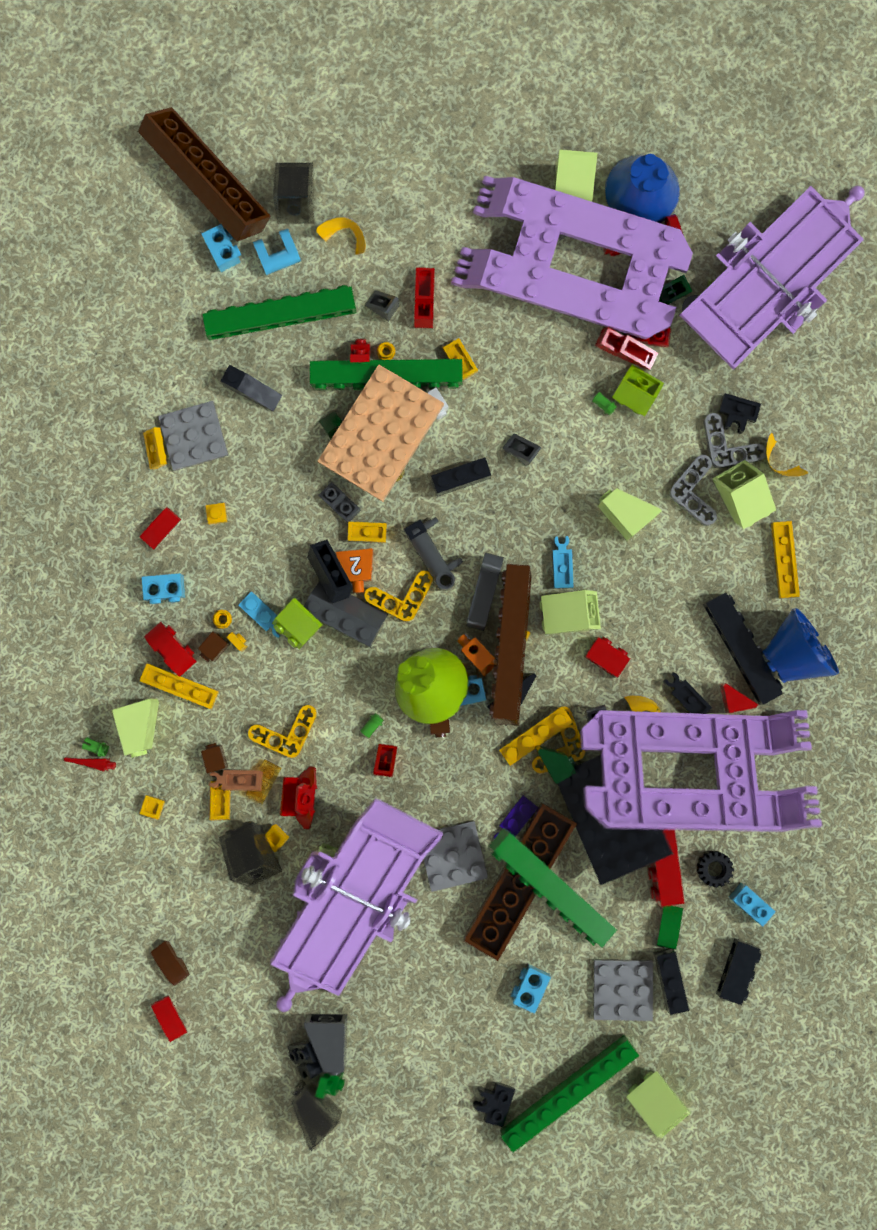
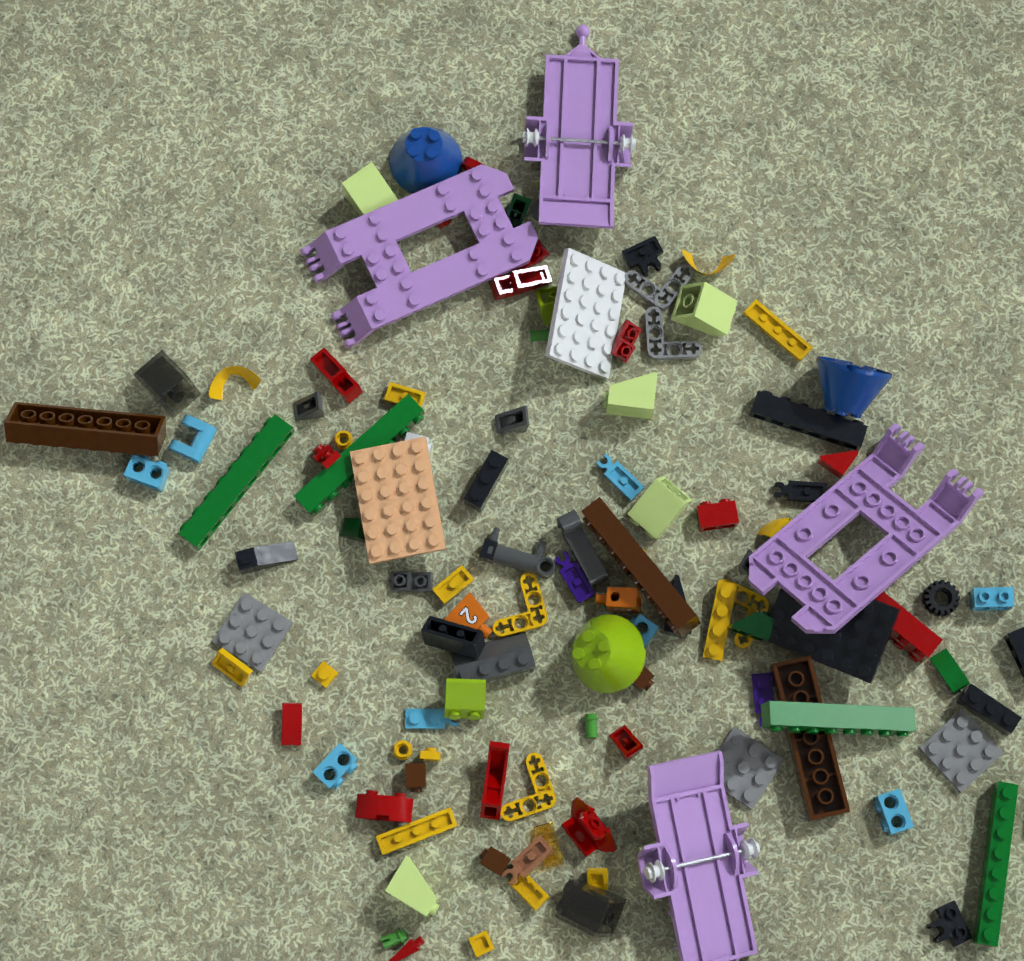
camera: 40 degrees left, 10 degrees down
(265, 702) = (494, 780): none -> red arch
(459, 609) = (575, 579): none -> dark purple plate
(651, 417) = (586, 314): none -> white plate
(663, 463) = (624, 341): none -> red slope

